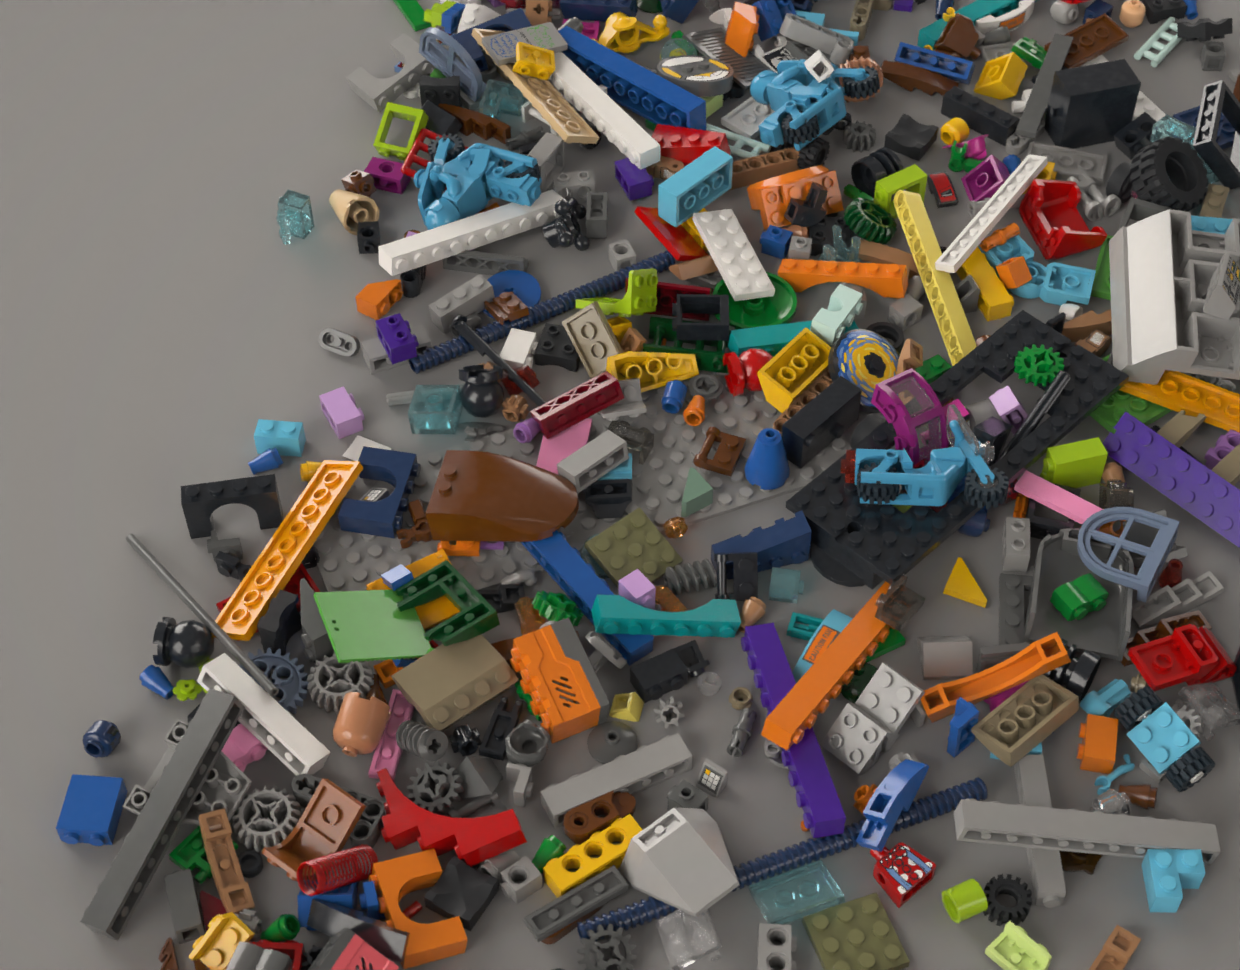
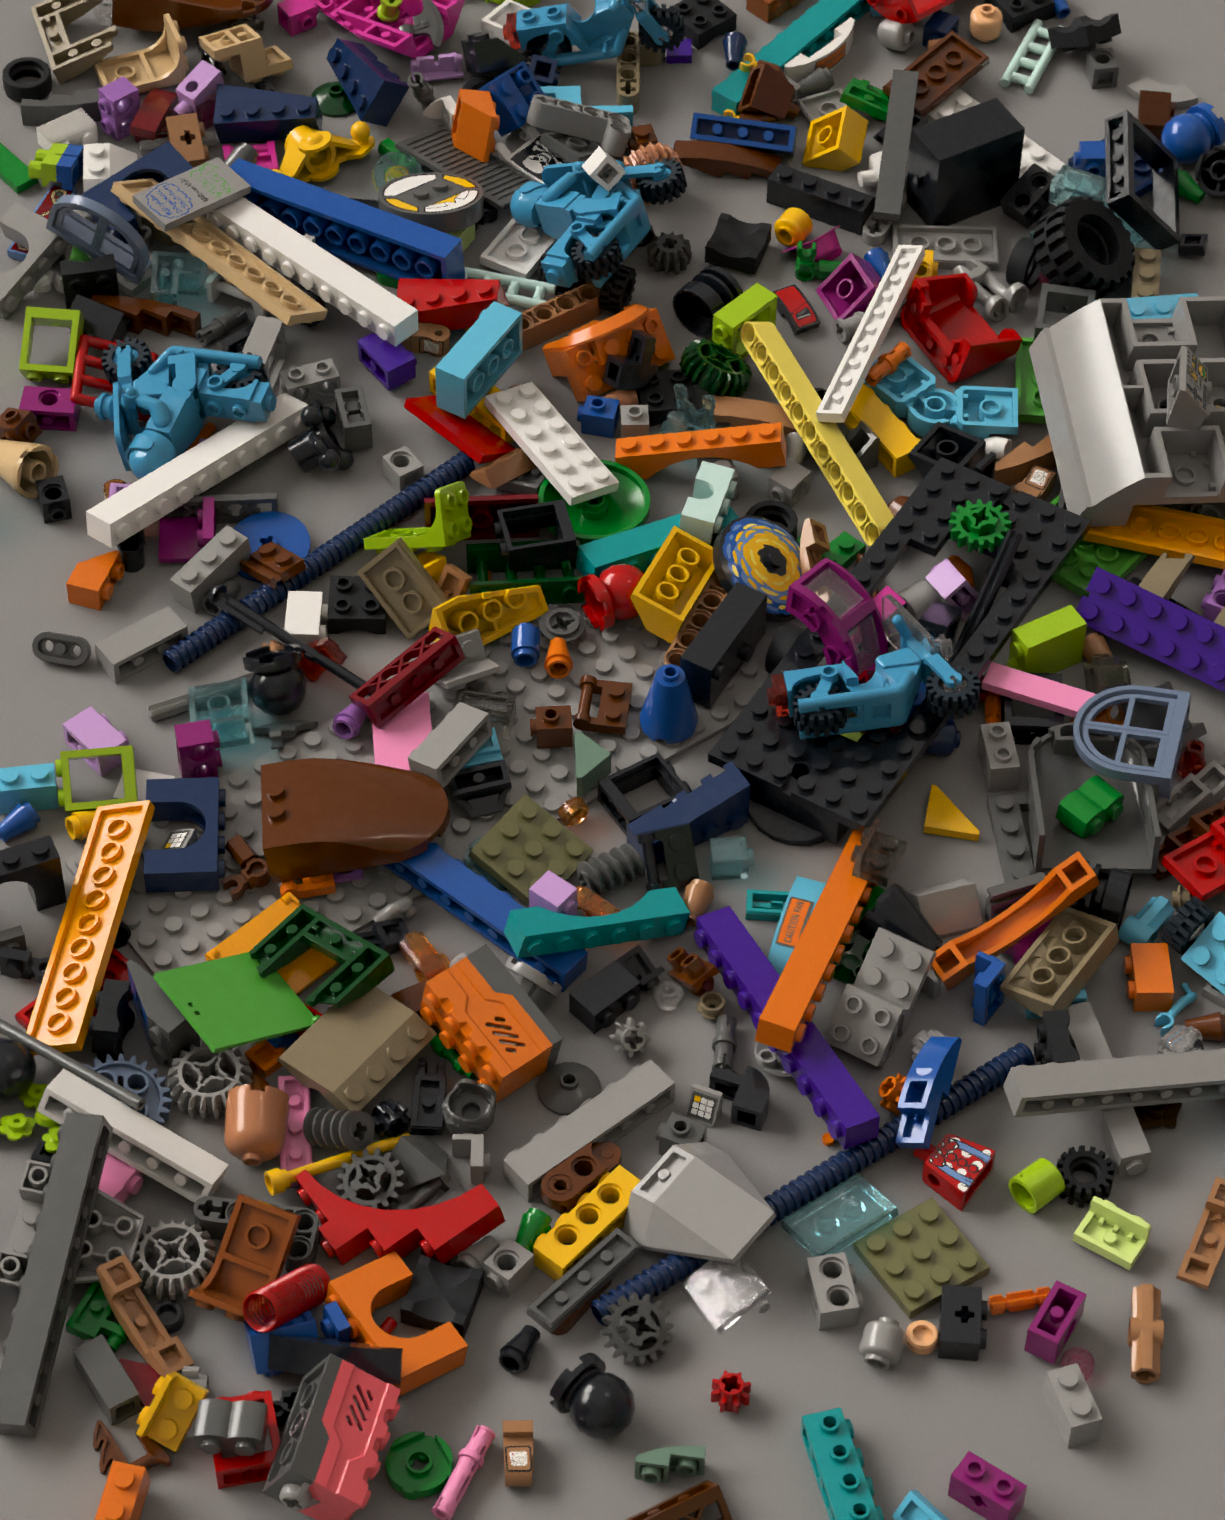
camera: 15 degrees left, 0 degrees up
(282, 929) = (239, 1380): green cone -> none
(353, 441) = (129, 776): none -> lime window
(366, 771) = (278, 1180): none -> yellow piece
(396, 338) = (143, 630): dark purple brick -> none
(397, 577) = (244, 937): tile -> none
(408, 431) = (197, 749): none -> magenta brick
(452, 276) = (185, 536): none -> magenta bracket
(509, 951) = (518, 1352): none -> black cone
(515, 408) = (323, 695): medium nougat gear -> none
(534, 61) = (213, 217): yellow bracket -> none
(557, 607) = (454, 936): green gear -> none
(627, 707) = (576, 1042): light yellow slope -> none
(676, 460) = (552, 726): none -> reddish brown brick
(725, 510) = (614, 786): none -> black window
(731, 669) = (692, 971): none -> reddish brown hips
(748, 774) = (747, 1092): none -> black brick
(855, 193) = (683, 333): green piece -> none
(906, 658) = (901, 916): none -> black cone
(1003, 786) = (1053, 1039): none -> black brick
(1014, 272) = (916, 408): orange panel -> none
(1022, 396) = (964, 569): none -> orange arm
(1032, 302) = (947, 443): none -> black slope
(1188, 113) = (1091, 157): none -> blue brick

